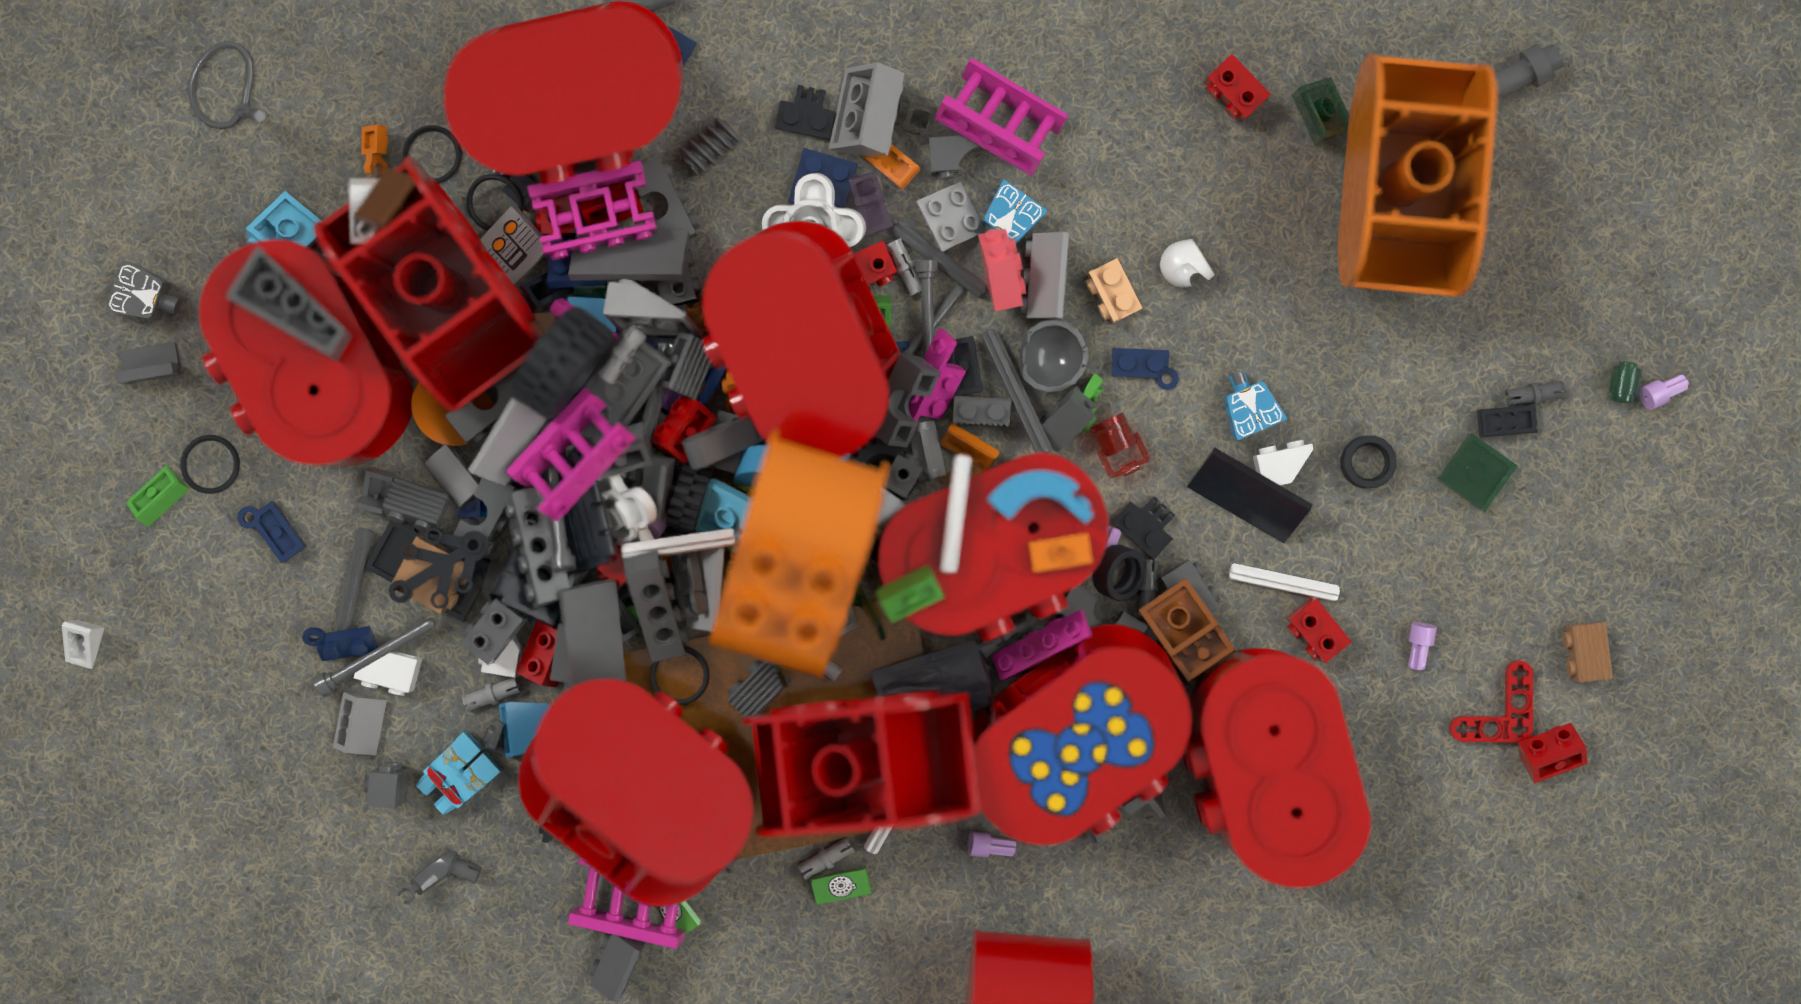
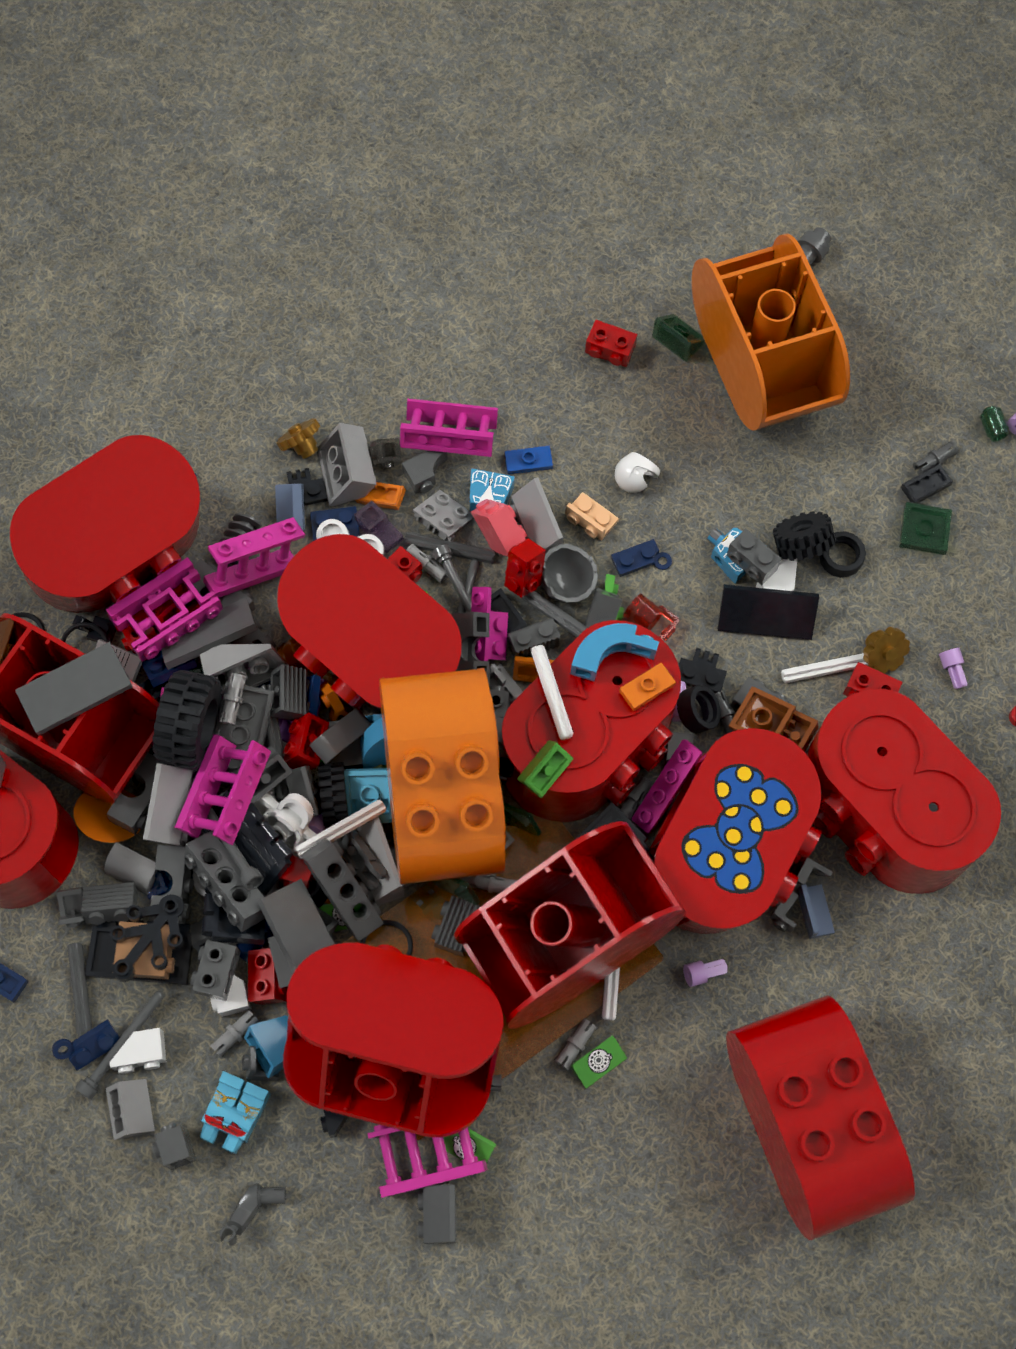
camera: 25 degrees left, 20 degrees down
(449, 293) = (73, 688): none -> dark grey tile
(713, 189) = (256, 570): none -> dark pink fence
(783, 134) = (290, 503): none -> sand blue panel
(829, 52) = (301, 438): none -> pearl gold plant
(1005, 331) = (524, 567): none -> red brick
(1075, 190) = (528, 460): none -> blue plate
(1134, 837) = (815, 911): none -> sand blue panel
(1262, 431) = (753, 556): none -> dark grey brick
(1329, 441) = (804, 536): none -> black tyre
(1354, 594) = (886, 649): none -> pearl gold plant

